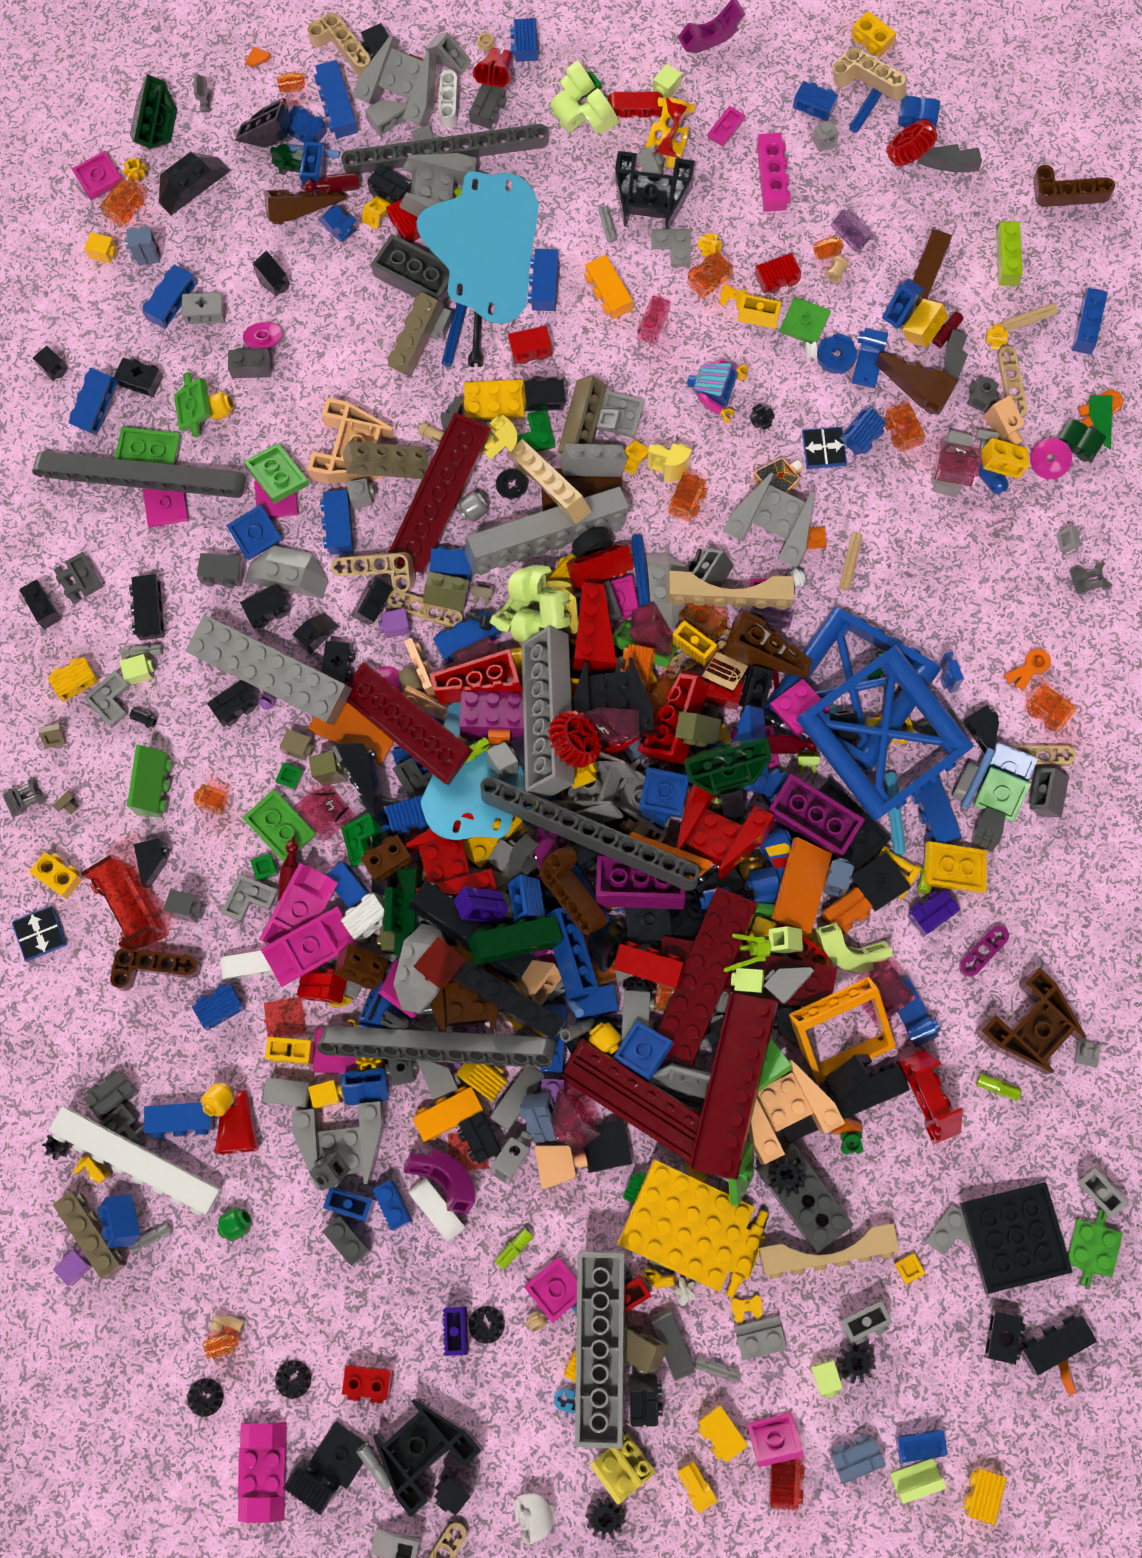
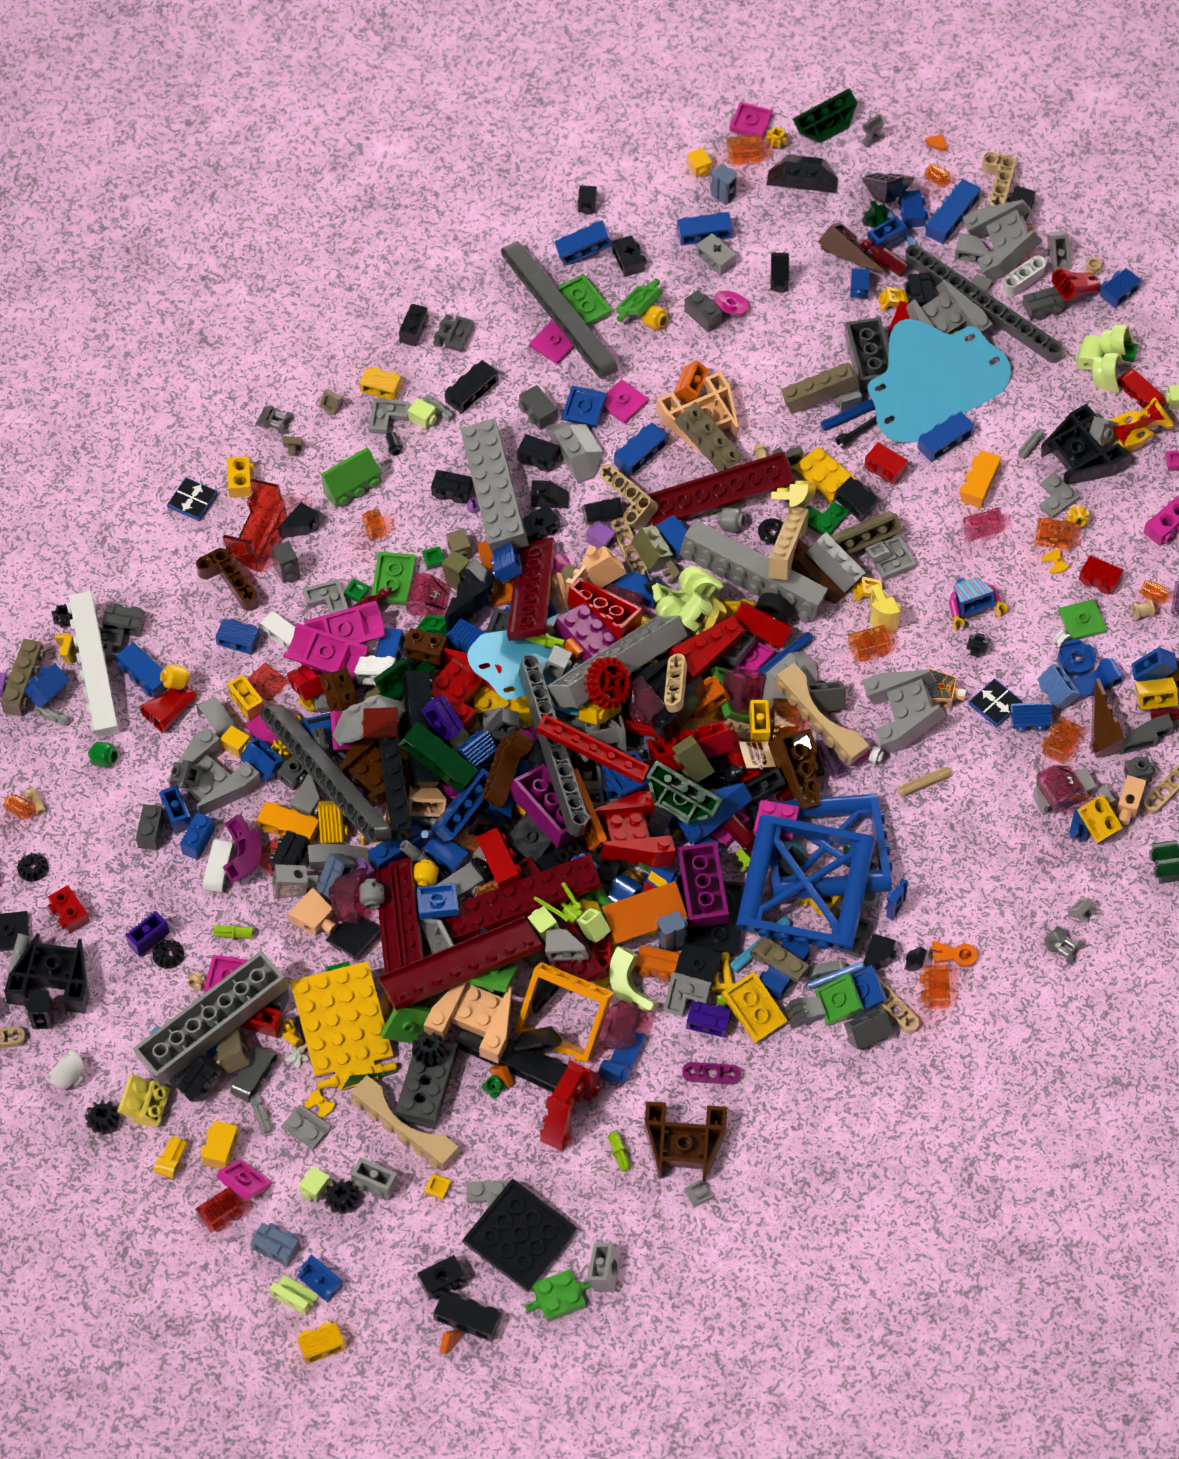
camera: 45 degrees right, 15 degrees down
(276, 473) = (638, 386): bright green plate -> none
(311, 429) = (691, 382): none -> orange brick
(356, 721) = (506, 562): none -> blue brick
(360, 493) = (673, 445): light grey brick -> none
(436, 647) = (602, 566): none -> light nougat torso
(588, 1102) = (371, 894): none -> light grey head
(619, 682) = (679, 682): none -> tan beam
(625, 804) = (593, 748): none -> red plate
(730, 710) = (733, 773): none -> black arm
(759, 311) = (1056, 583): yellow brick -> none
(817, 538) = (920, 747): orange plate -> none
(855, 389) = (1058, 686): none -> medium blue brick
(893, 912) = (684, 987): none -> light grey plate
(930, 811) = (779, 958): none -> dark tan plate
(1012, 703) = (915, 959): none -> black plate
(1053, 469) = (1138, 857): dark pink dish -> none

